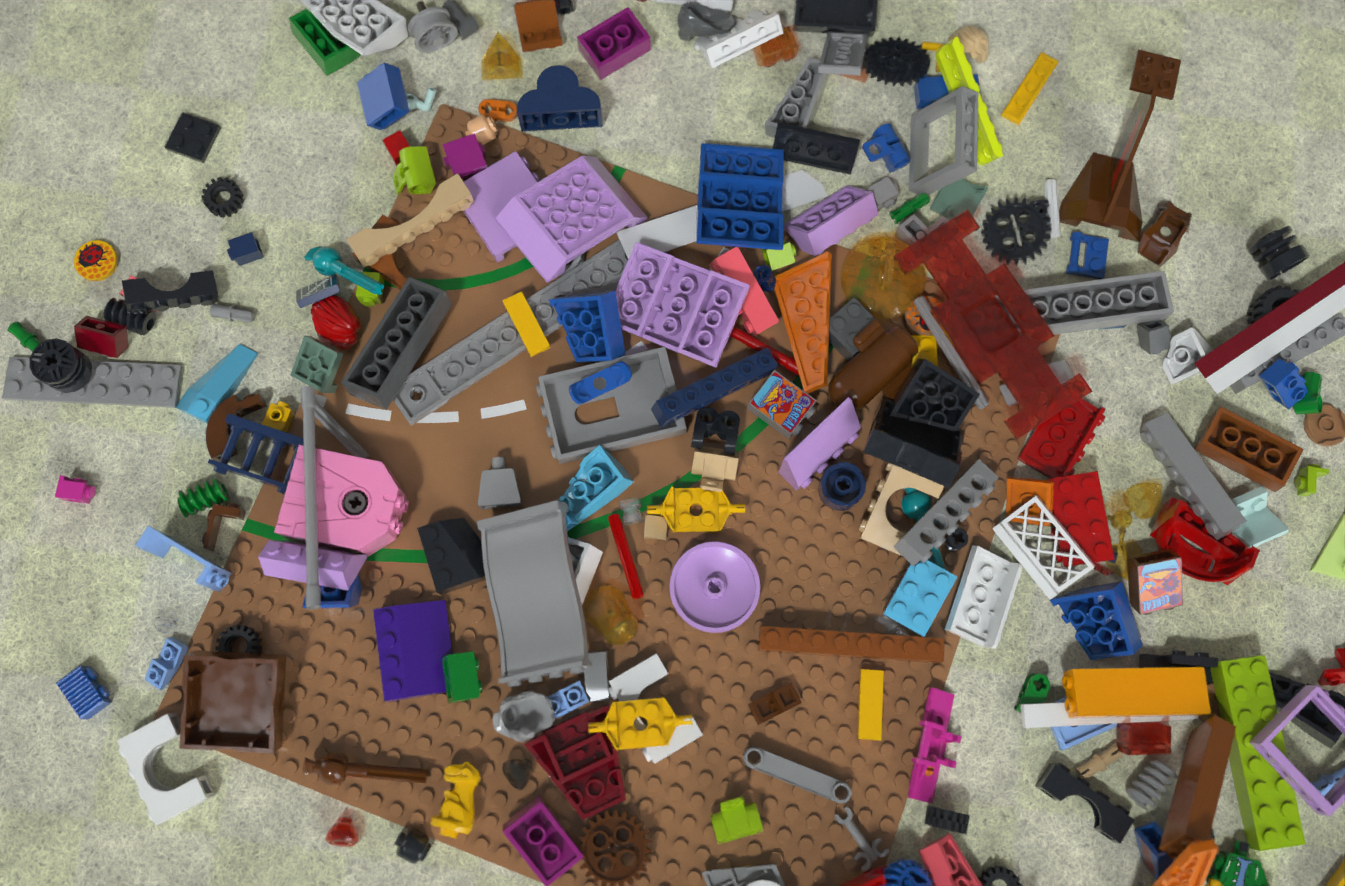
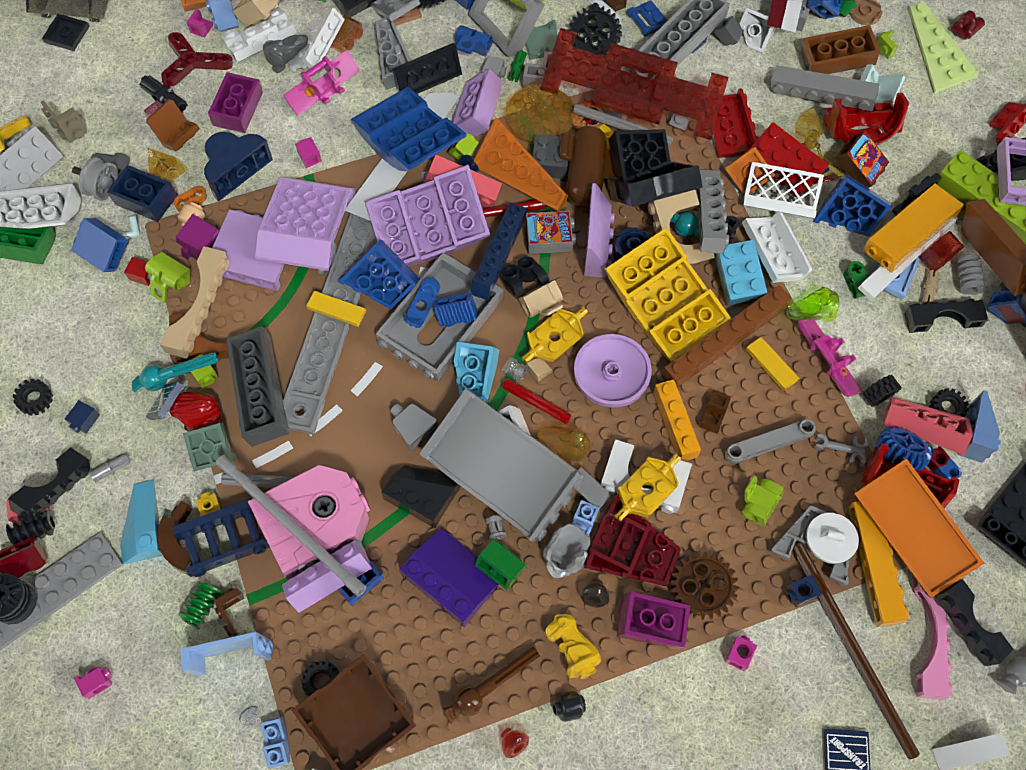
camera: 40 degrees left, 10 degrees down
(458, 73) = (142, 193): none -> dark blue brick
(485, 645) = (499, 533): none -> light grey bush
(626, 412) = (455, 309): none -> blue brick
(637, 145) = (308, 152): none -> dark pink brick
(685, 84) = (309, 92): none -> dark pink piece
(729, 682) = (676, 420): none -> light orange brick
(828, 560) = (666, 295): none -> yellow slope
(961, 686) = (816, 306): none -> clear neon green hair

